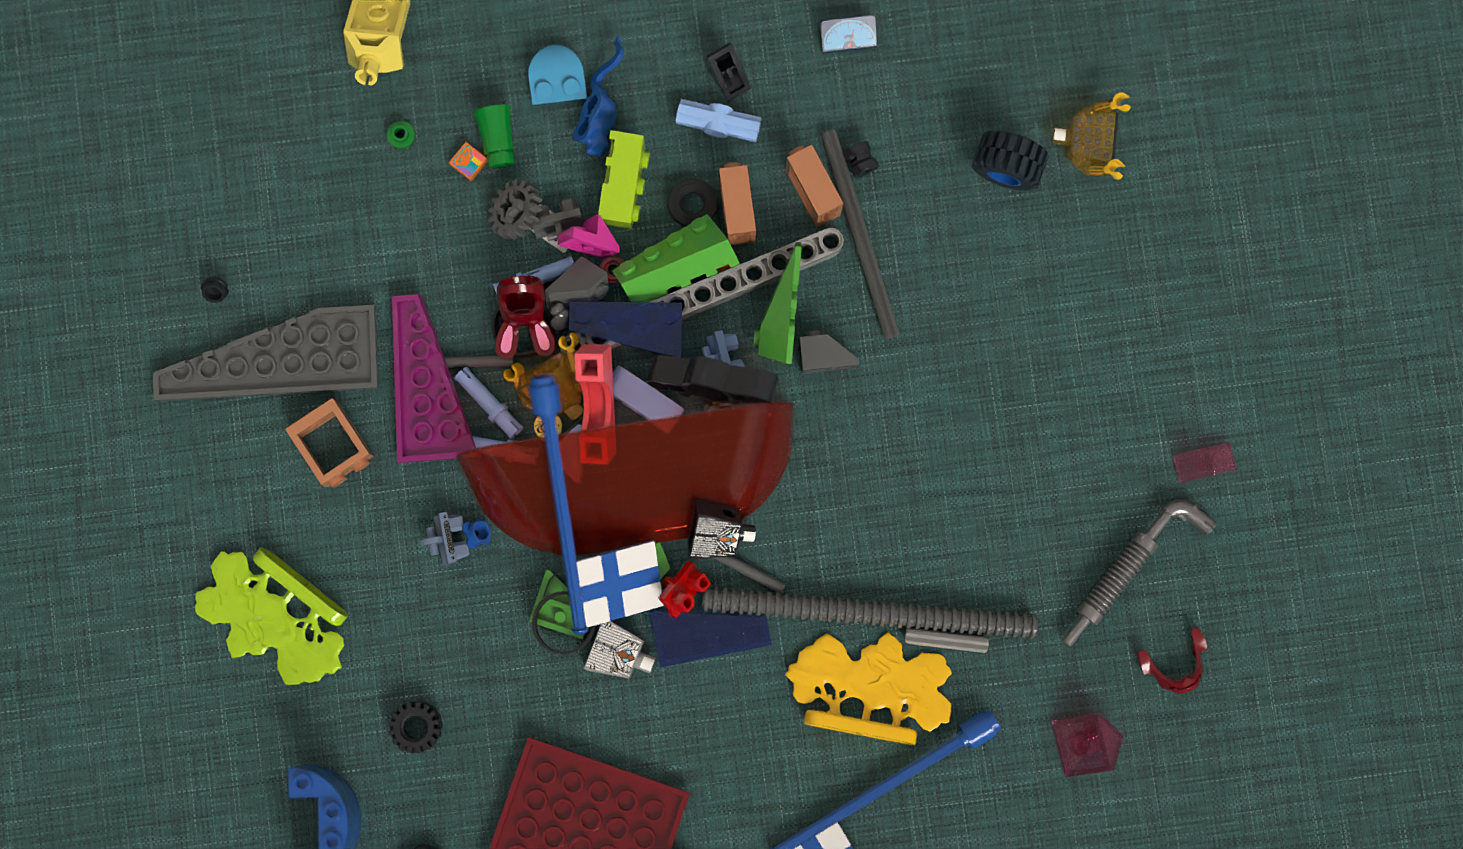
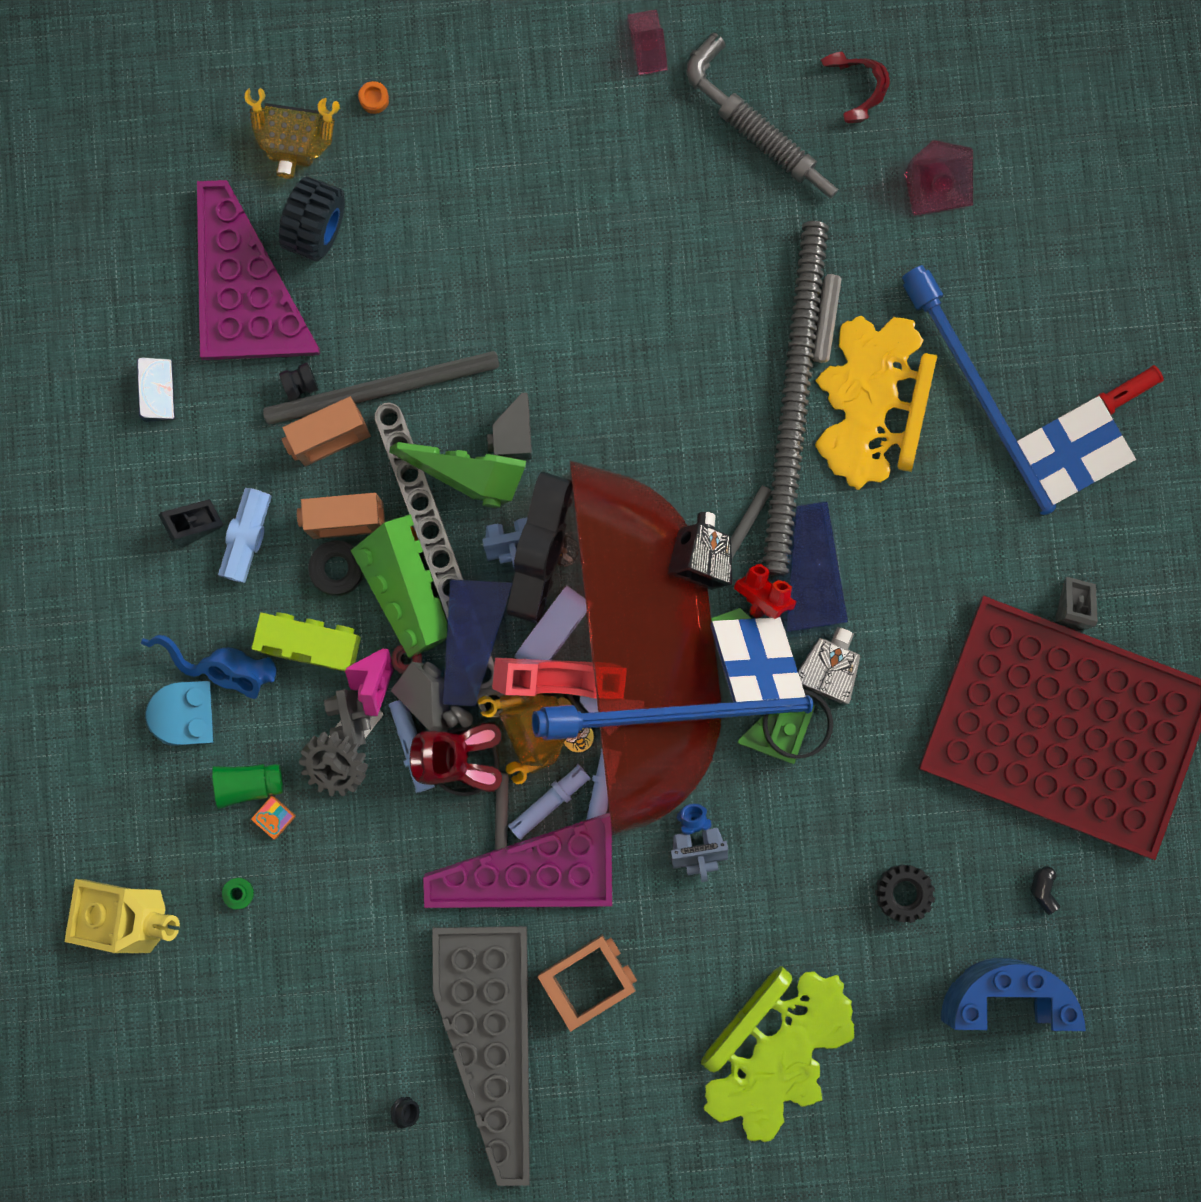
camera: 85 degrees left, 0 degrees up
(942, 102) = (241, 295): none -> magenta wing
(1134, 211) = (373, 97): none -> orange tile

